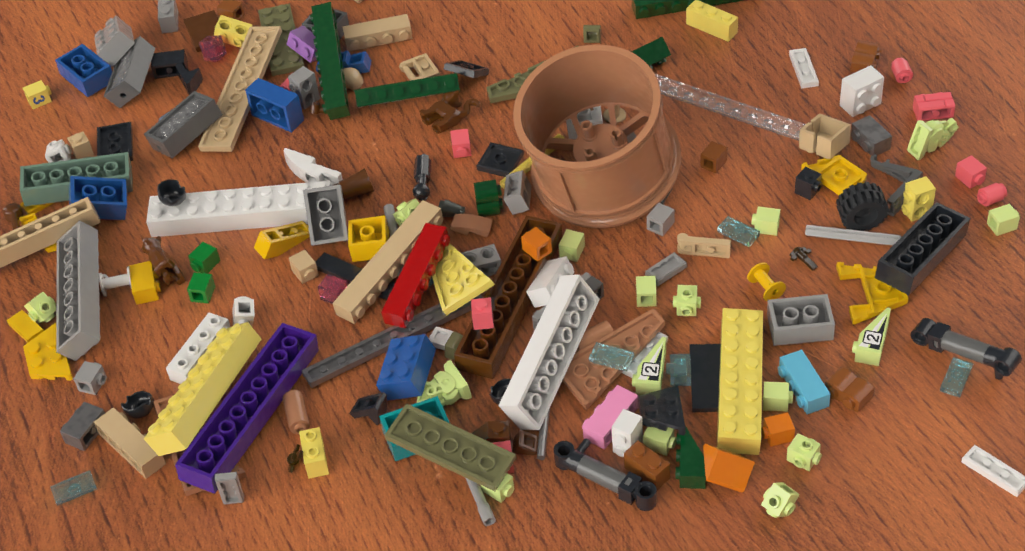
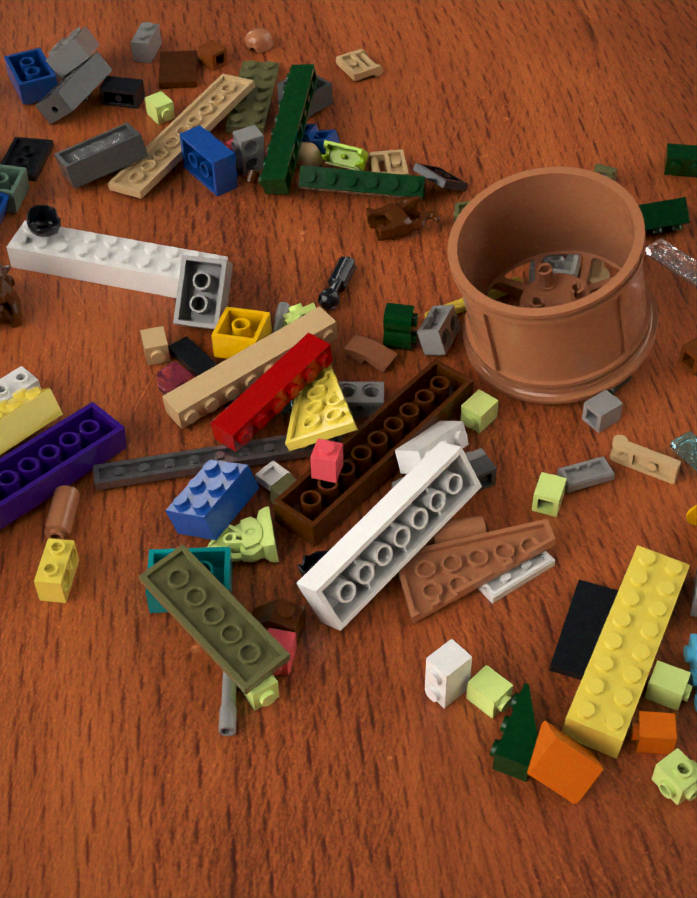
camera: 15 degrees right, 0 degrees up
(190, 79) = (136, 112): black slope -> none
(201, 287) = (31, 336): green brick -> none
(204, 258) = (51, 305): green brick -> none
(209, 68) = (160, 107): none -> yellowish green brick
(212, 48) = (174, 86): clear pink brick -> none
(232, 30) = (200, 72): light yellow brick -> none
(243, 310) = (60, 376): white brick -> none
(280, 239) = (142, 308): yellow slope -> none
(294, 458) = (30, 570): dark brown piece -> none
(302, 42) = (267, 102): medium lavender brick -> none
(307, 170) = (213, 241): white slope -> none
(356, 185) = (255, 271): reddish brown plant -> none
(370, 406) = (150, 535): black slope -> none
(377, 32) = (359, 115): tan brick -> none
(382, 71) = (344, 156): none -> lime hinge
(450, 208) = (351, 326): pearl dark grey cone -> none
(460, 143) = (398, 257): coral brick -> none
(499, 159) = (434, 288): black tile -> none
(525, 443) = (318, 642): reddish brown slope -> none
(536, 244) = (431, 395): orange brick -> none
(543, 438) = (343, 641): flat silver bar -> none
(599, 426) = (453, 624): bright pink brick -> none
(611, 356) = (469, 564): clear light blue plate -> none
(628, 487) = (422, 744): black piece -> none
(647, 464) = (458, 724): dark orange brick -> none
(651, 370) = (514, 599): yellowish green slope -> none
(662, 410) = (507, 656): black wing -> none
(679, 370) = (552, 608): clear light blue brick -> none
(686, 304) = (595, 521): yellowish green brick -> none
(780, 500) = (620, 835): yellowish green brick -> none

